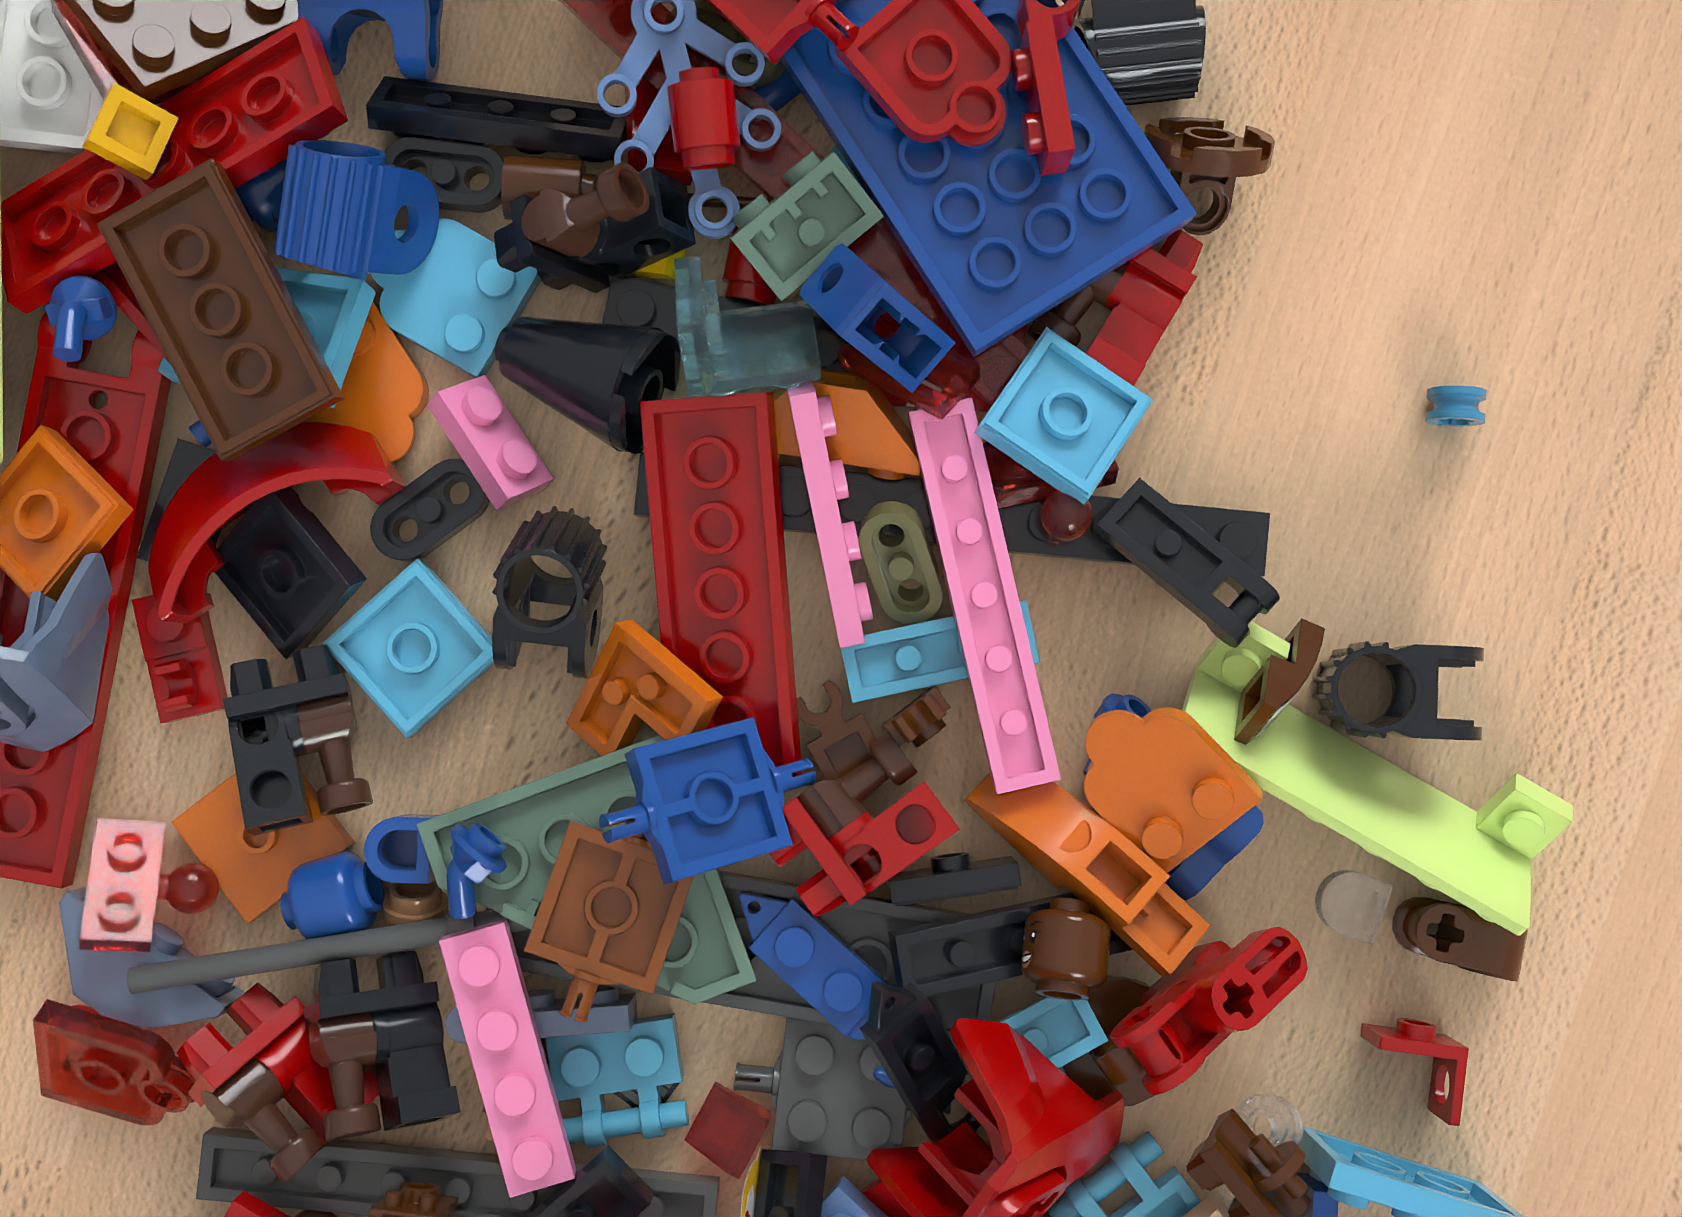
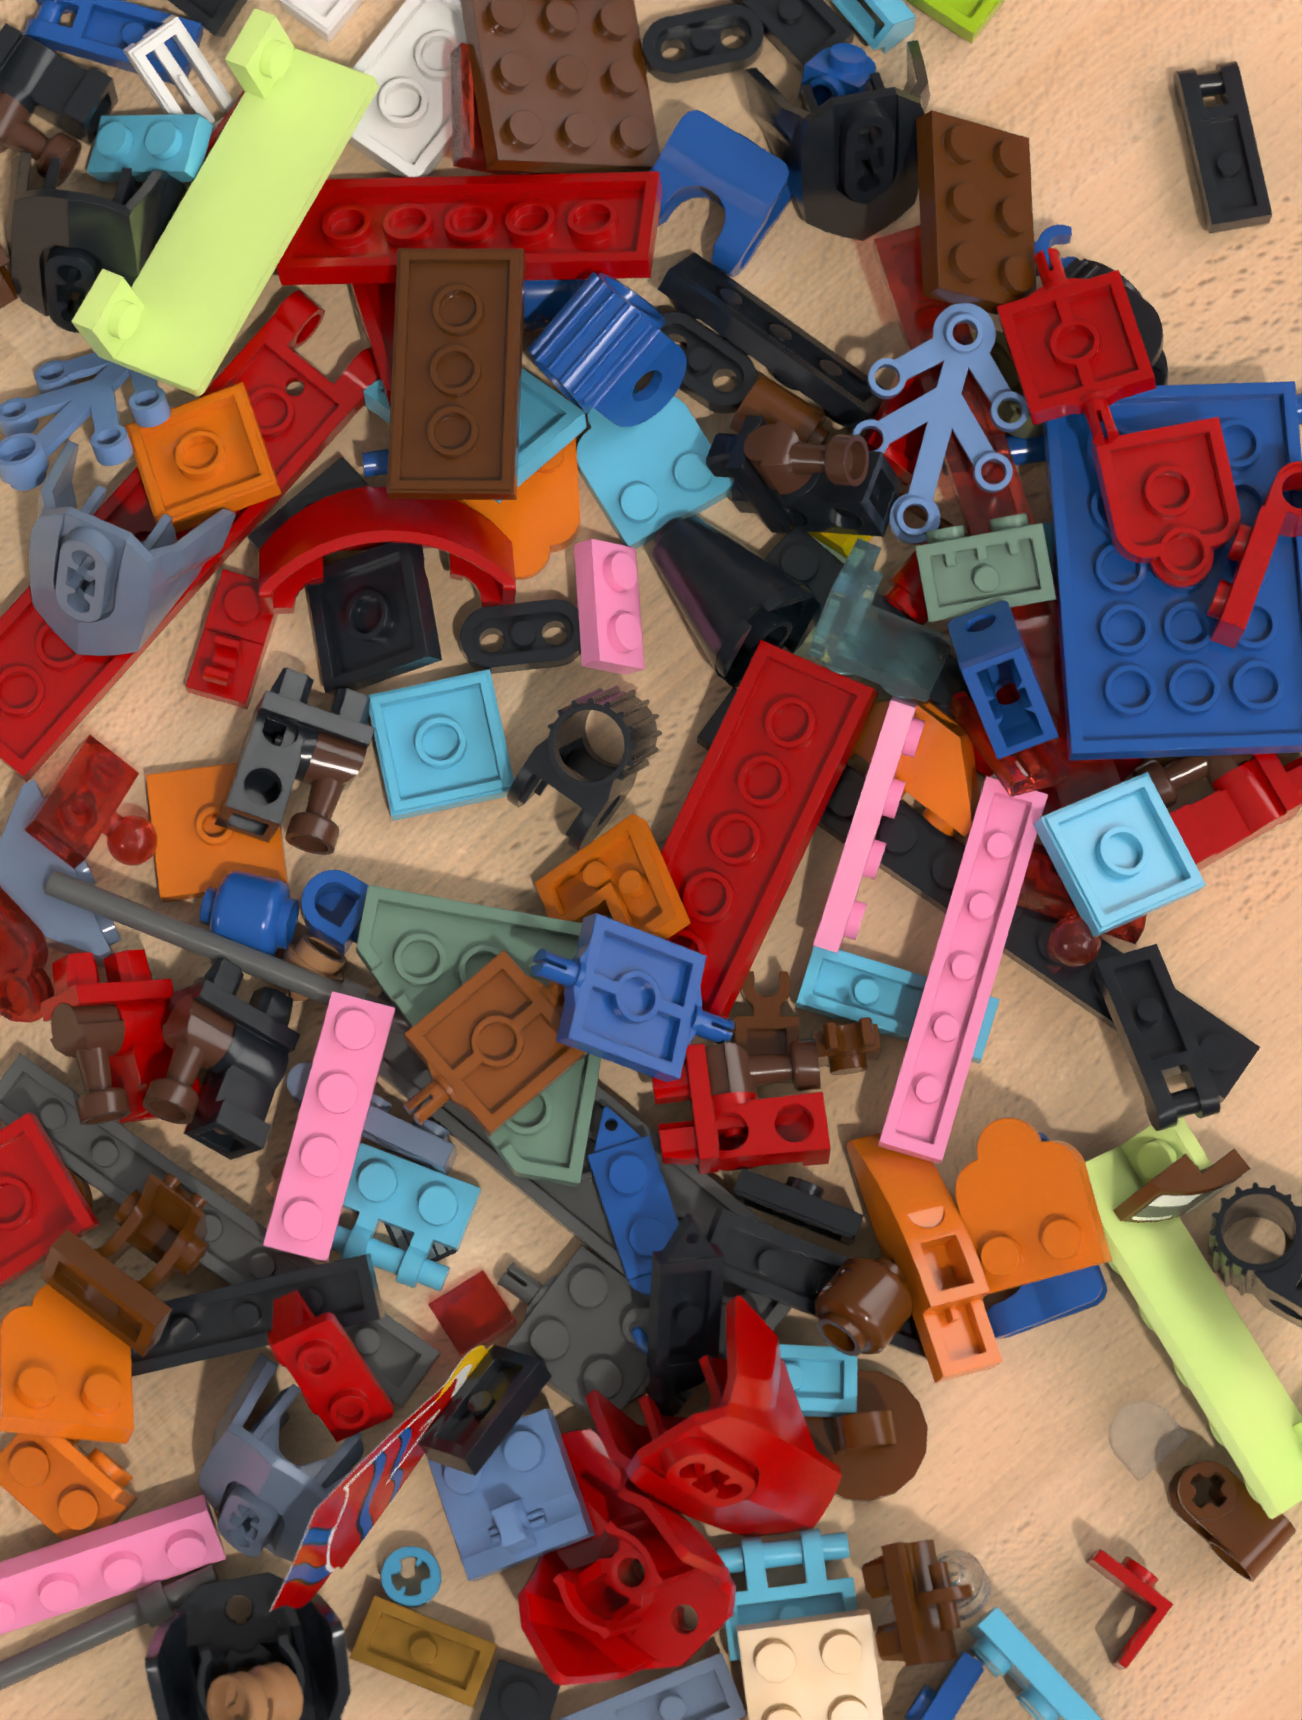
camera: 30 degrees right, 10 degrees down
(80, 311) = (332, 310): blue plate -> none
(130, 131) = (464, 189): yellow plate -> none
(474, 855) = (406, 932): blue plate -> none
(704, 119) = (948, 438): red brick -> none
(900, 558) = (908, 902): olive plate -> none
(1207, 1000) = (965, 1417): red piece -> none

